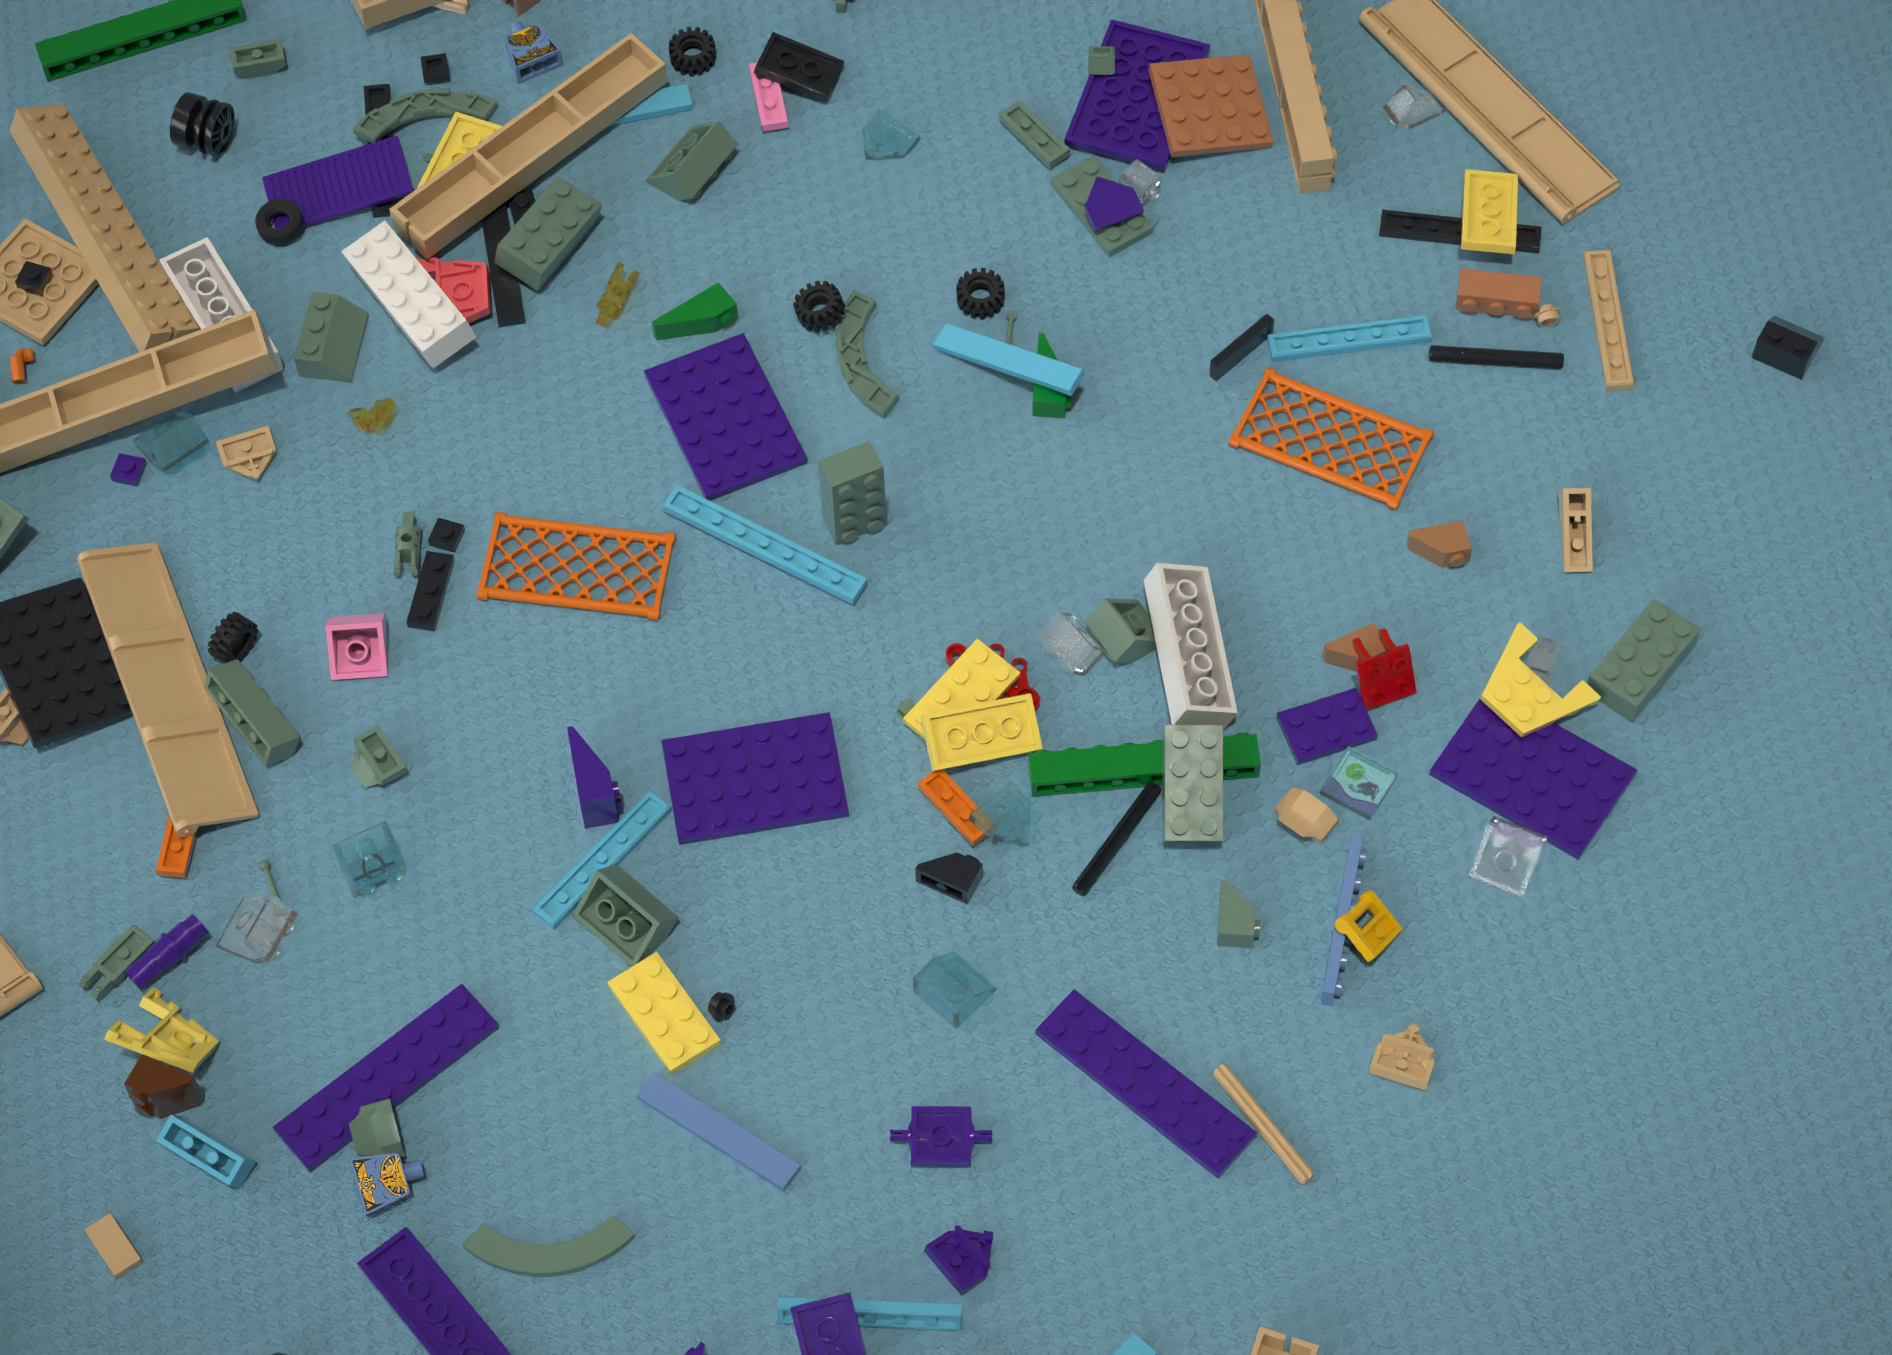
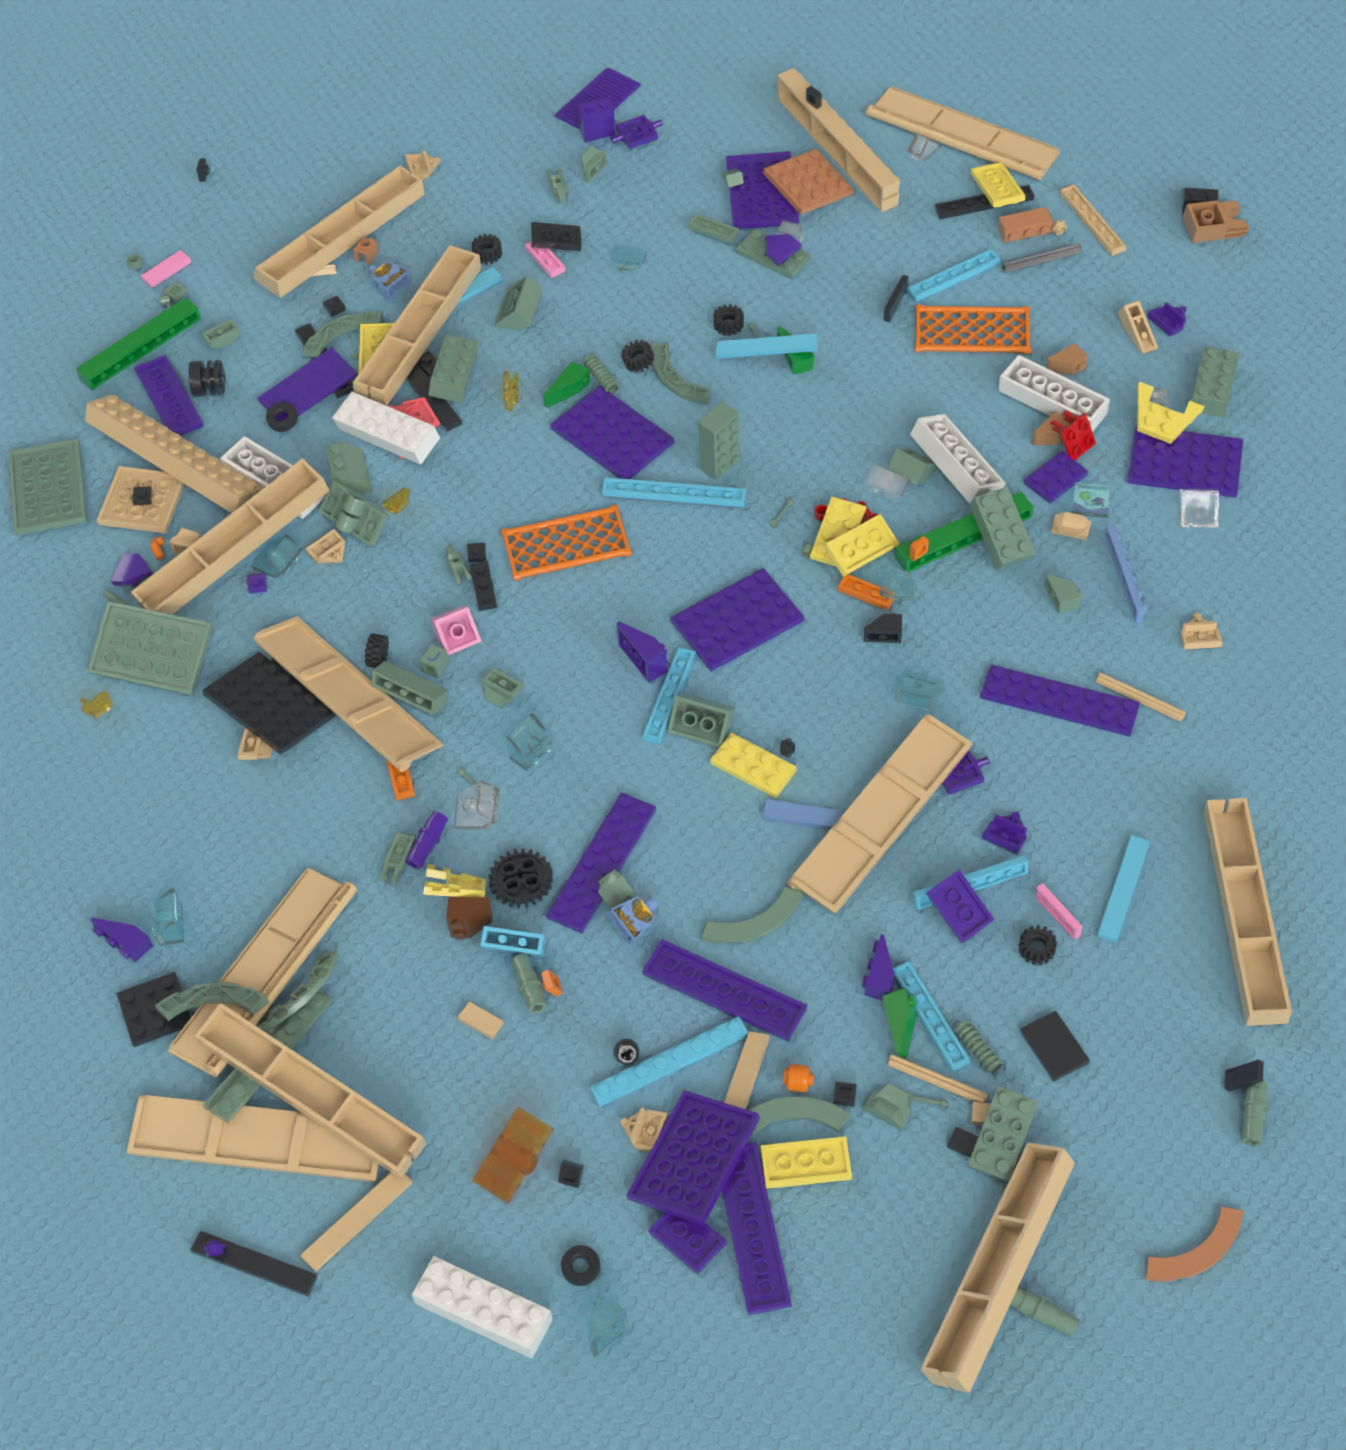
camera: 20 degrees left, 5 degrees down
(55, 369) = (183, 540): none -> tan slope
(142, 132) = (168, 396): none -> dark purple plate
(198, 1220) = (529, 984): none -> sand green piece
(229, 1231) = (551, 983): none -> orange plate
(264, 1058) = (520, 878): none -> black gear
(302, 413) = (353, 513): none -> sand green plate
(307, 683) = (434, 660): none -> sand green brick
(754, 315) = (601, 374): none -> sand green piece
(797, 1159) = (880, 813): none -> tan piece
(882, 645) = (773, 523): none -> sand green hinge
(1054, 770) = (918, 548): none -> orange plate
(1116, 838) = (969, 577): black axle -> none
(1376, 932) = (1148, 571): yellow plate -> none
(1388, 591) = (1051, 392): none -> white brick
(1634, 528) = (1168, 318): none -> dark purple slope
(1785, 391) = (1213, 221): none -> medium nougat brick

